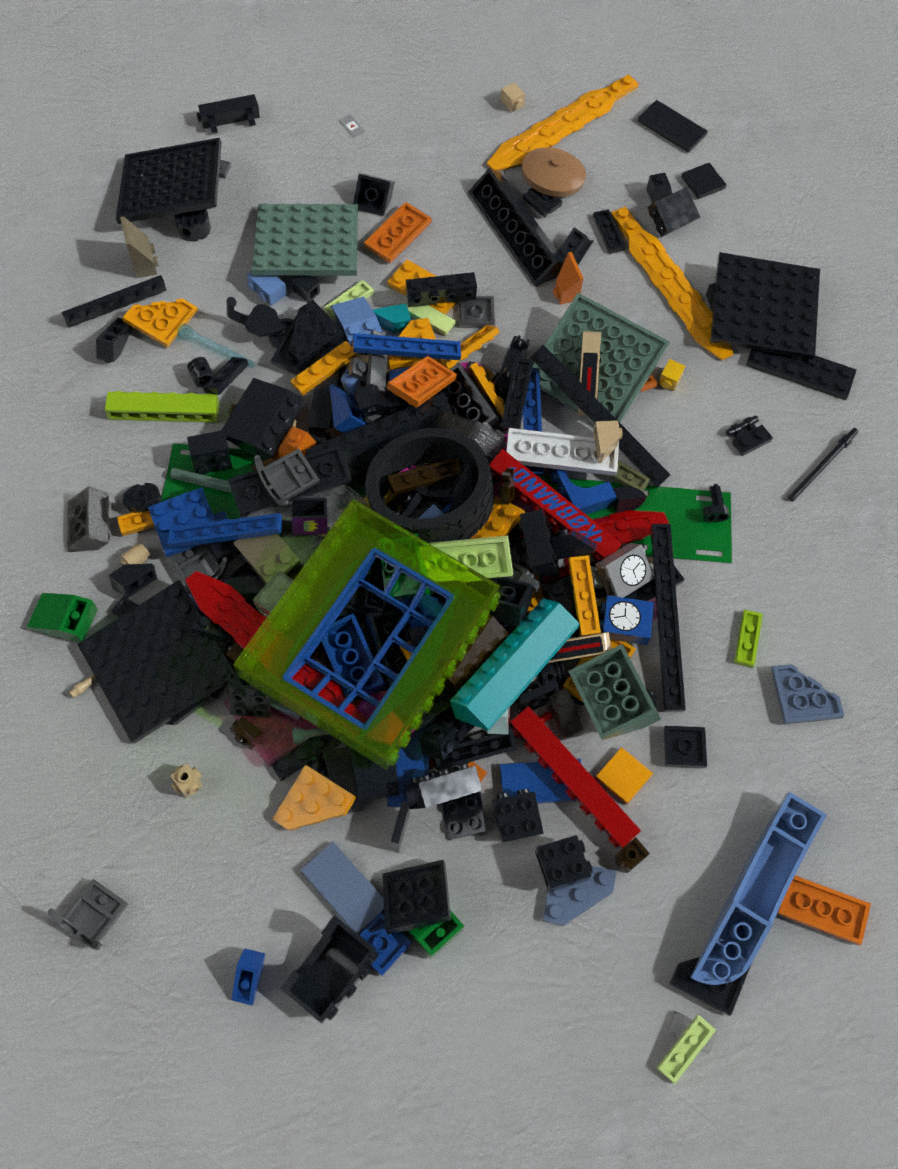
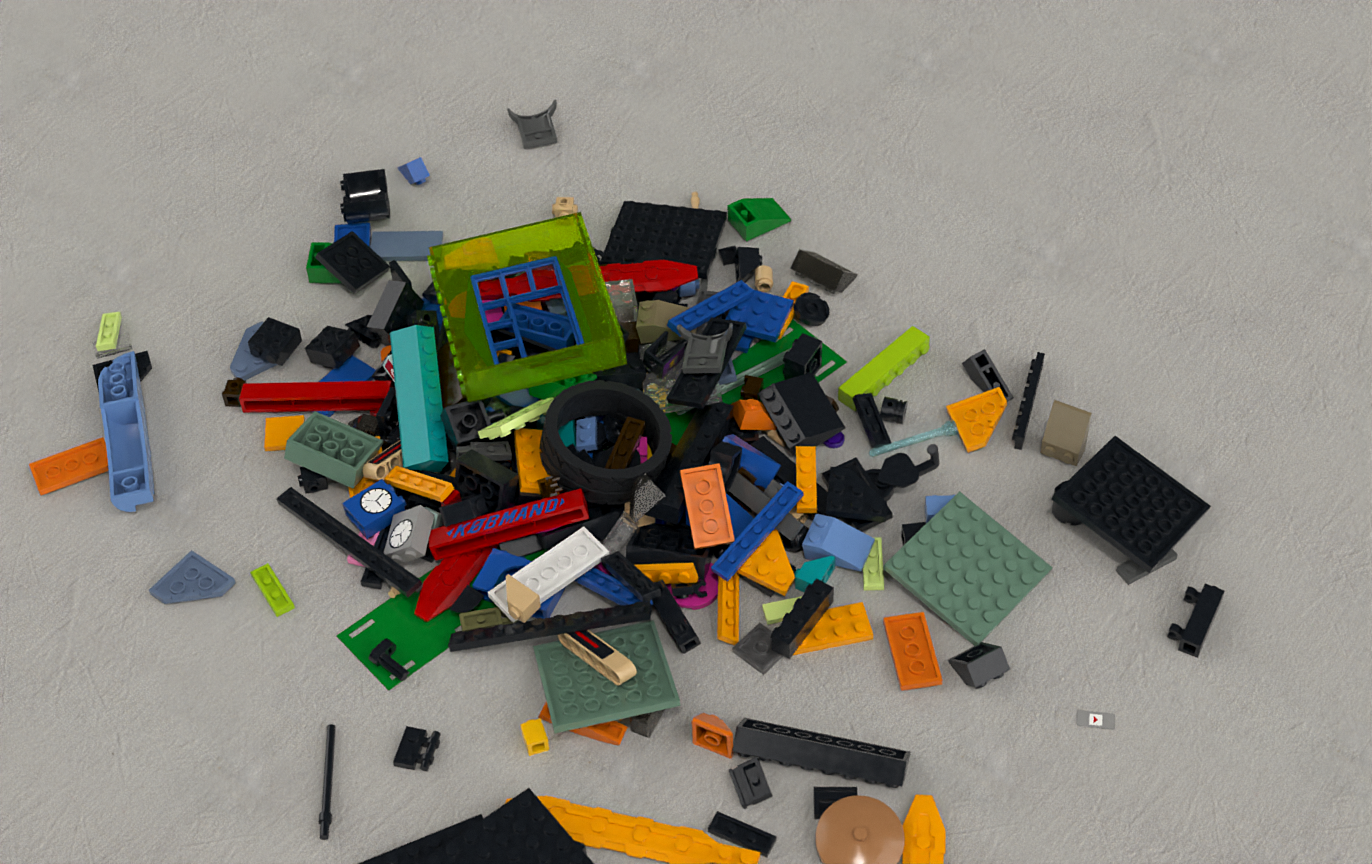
camera: 140 degrees right, 15 degrees down
(685, 747) = (255, 479): black plate -> none

